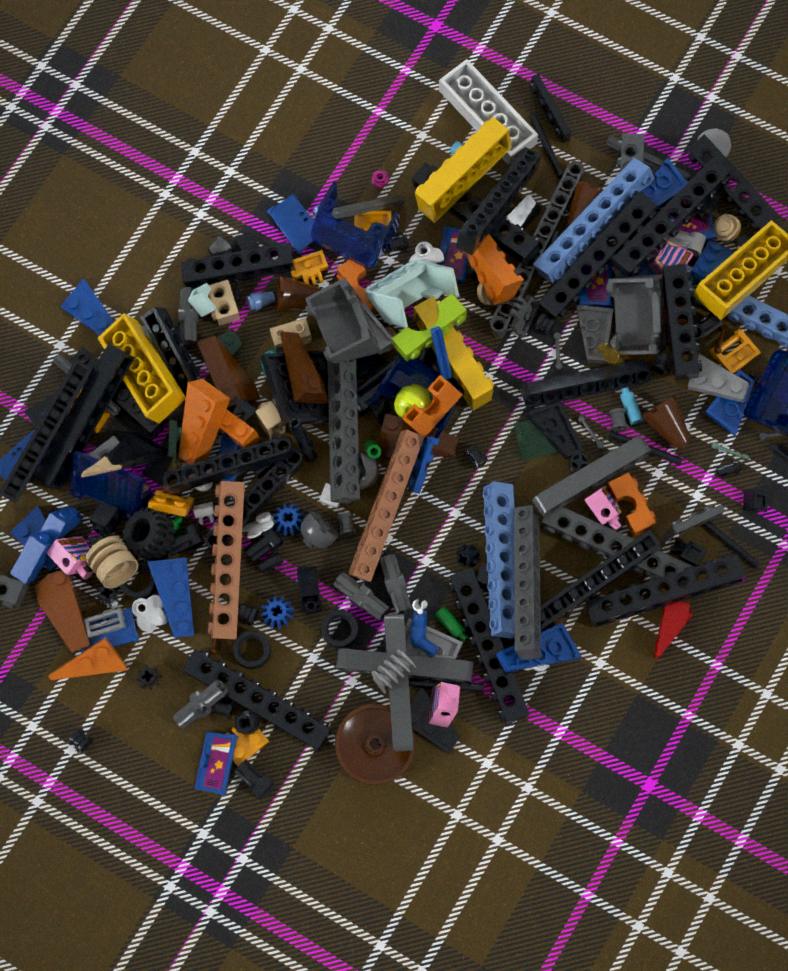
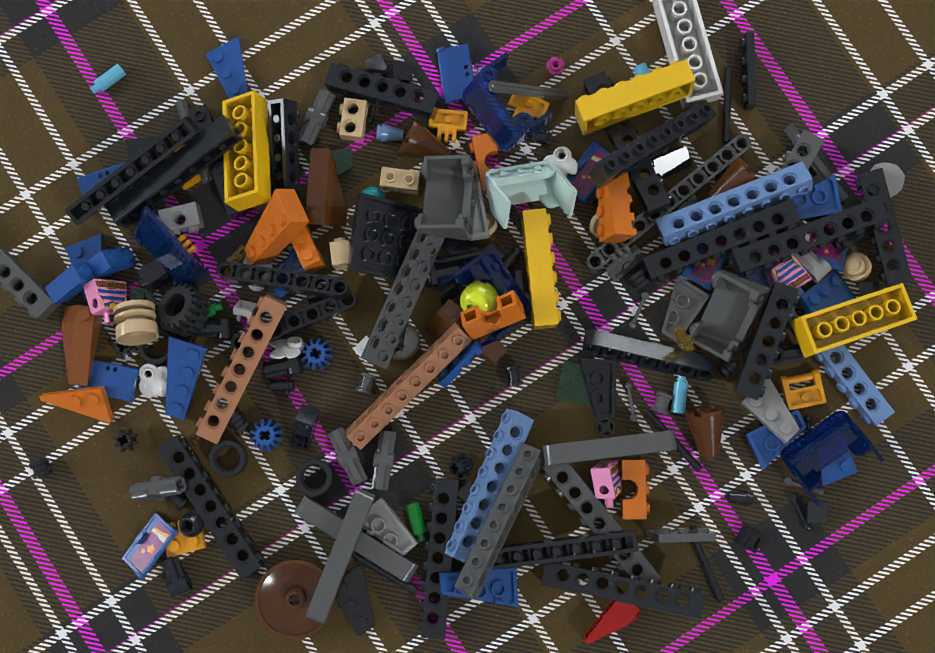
camera: 25 degrees right, 10 degrees up
(120, 619) = (123, 375): light grey tile -> none
(130, 452) = (200, 228): black plate -> none
(171, 503) = (220, 294): light orange plate -> none
(174, 438) = (245, 231): clear green wing -> none
(200, 300) = (330, 109): light aqua panel -> none
(246, 407) = (324, 233): black tile -> none
(304, 378) = (390, 230): reddish brown wedge -> none
(305, 445) = (362, 292): black pin -> none
(317, 532) = (337, 379): dark grey cylinder -> none
(372, 448) = (421, 326): green cylinder -> none
(392, 670) = (336, 548): light grey piece -> none
(411, 342) = (551, 235): lime arch -> none
(419, 628) = (382, 516): blue arm -> none
(441, 352) = (525, 268): blue axle -> none
(446, 700) = (372, 593): bright pink torso -> none
(690, 553) = (666, 559): black plate -> none
(714, 445) = (738, 468): sand green hinge -> none
(724, 328) = (787, 382): reddish brown hinge -> none

